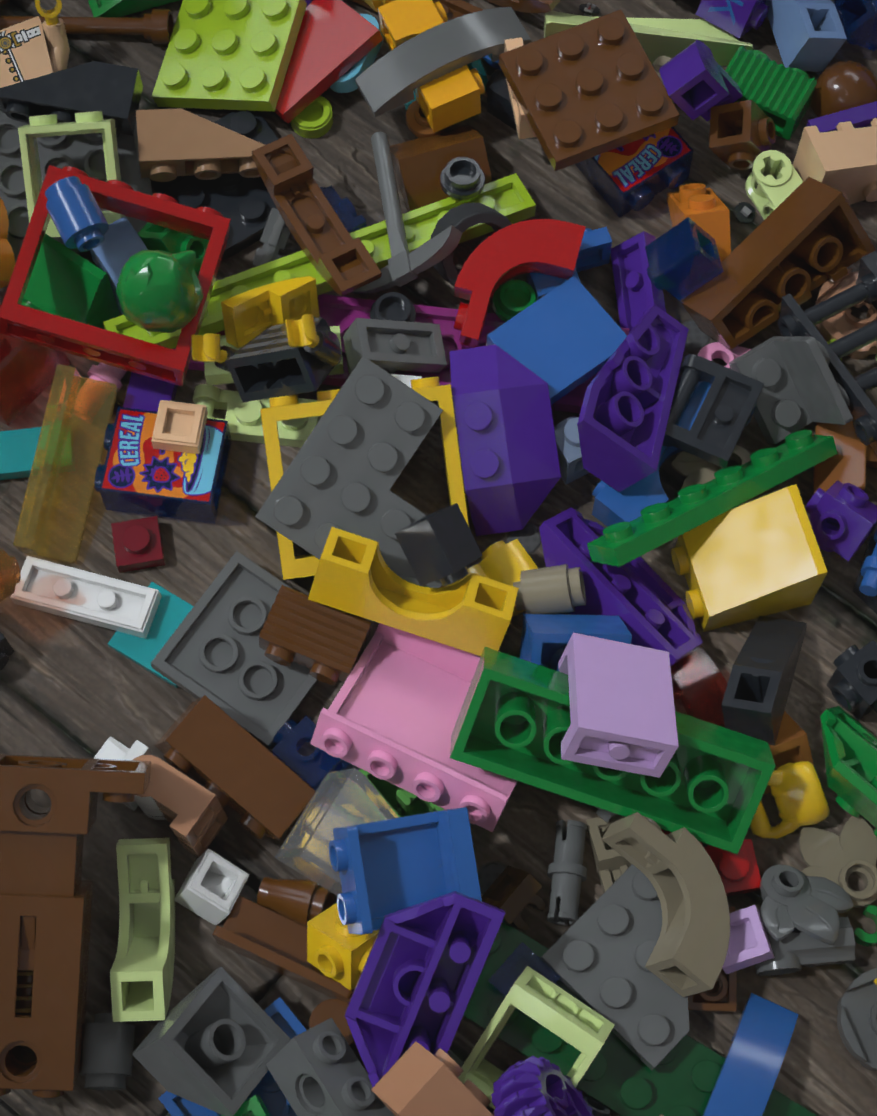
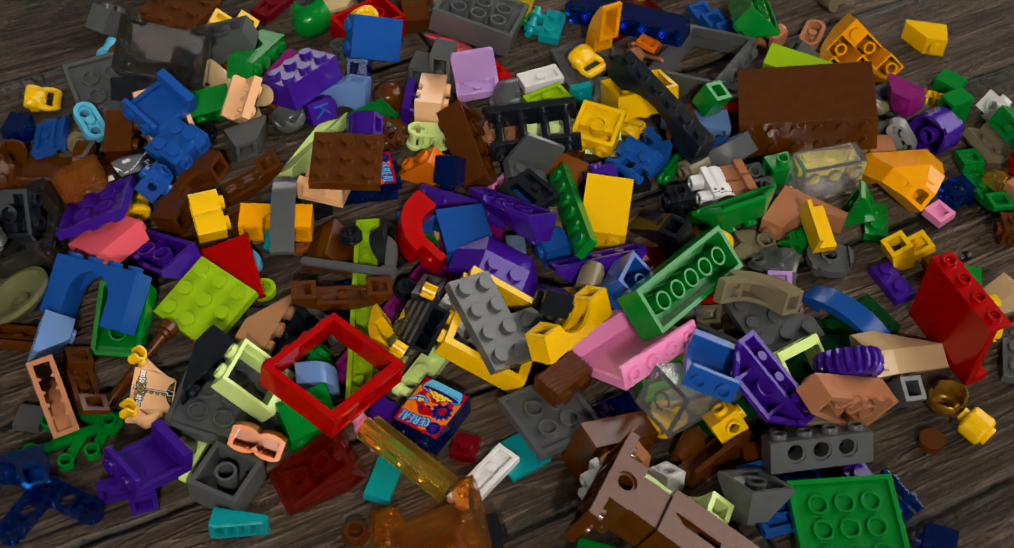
camera: 70 degrees left, 20 degrees down
(76, 214) = (301, 361): blue brick -> none
(159, 290) = (364, 345): green piece -> none
(179, 427) = (420, 392): light nougat tile -> none
(619, 706) = (670, 254): lavender panel -> none

